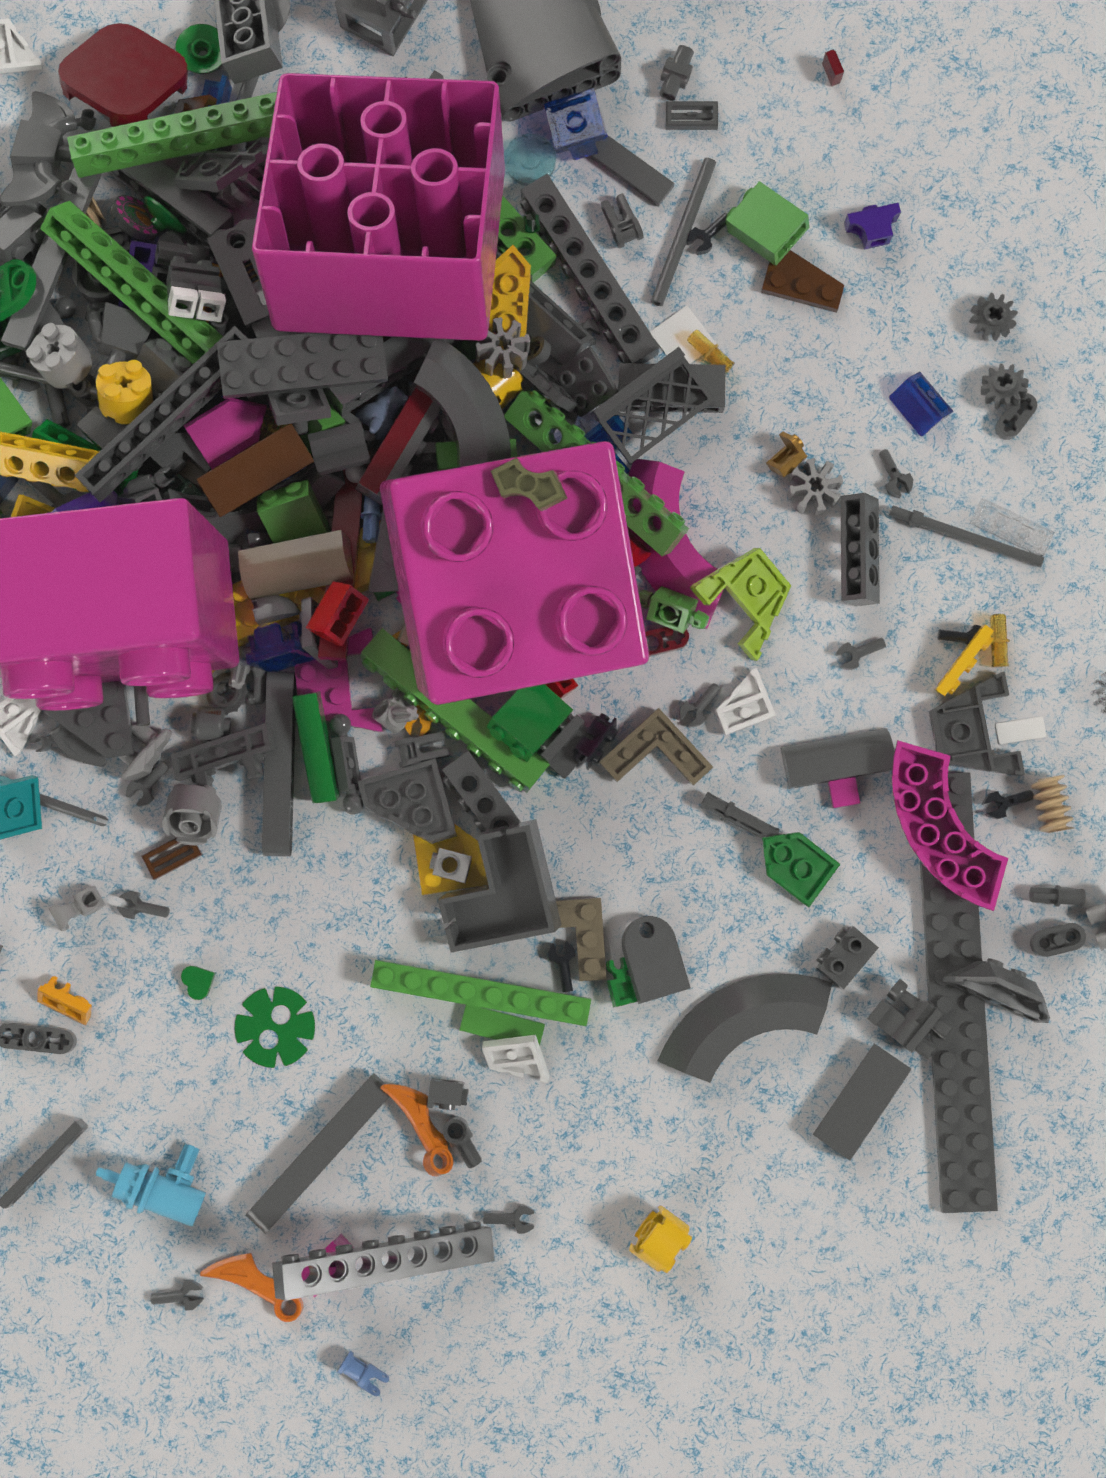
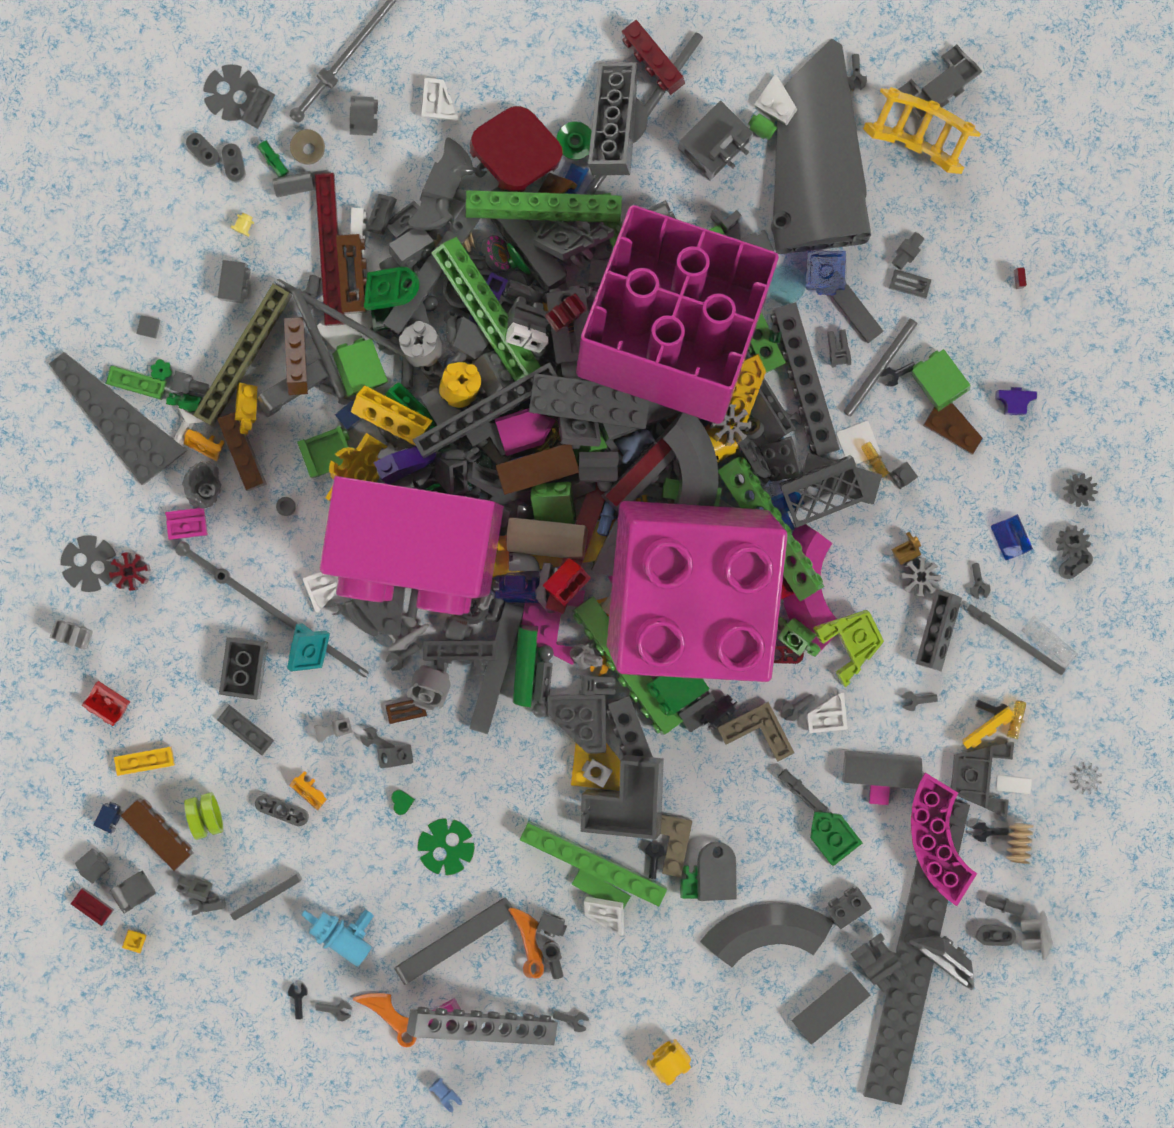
camera: 10 degrees right, 5 degrees up
(123, 1295) = (298, 999): none -> black bar
(173, 920) = (395, 756): none -> dark grey bracket
(234, 250) = (566, 312): none -> dark red gear
(541, 488) = (731, 555): olive tile -> none
(753, 360) = (903, 475): none -> dark grey brick

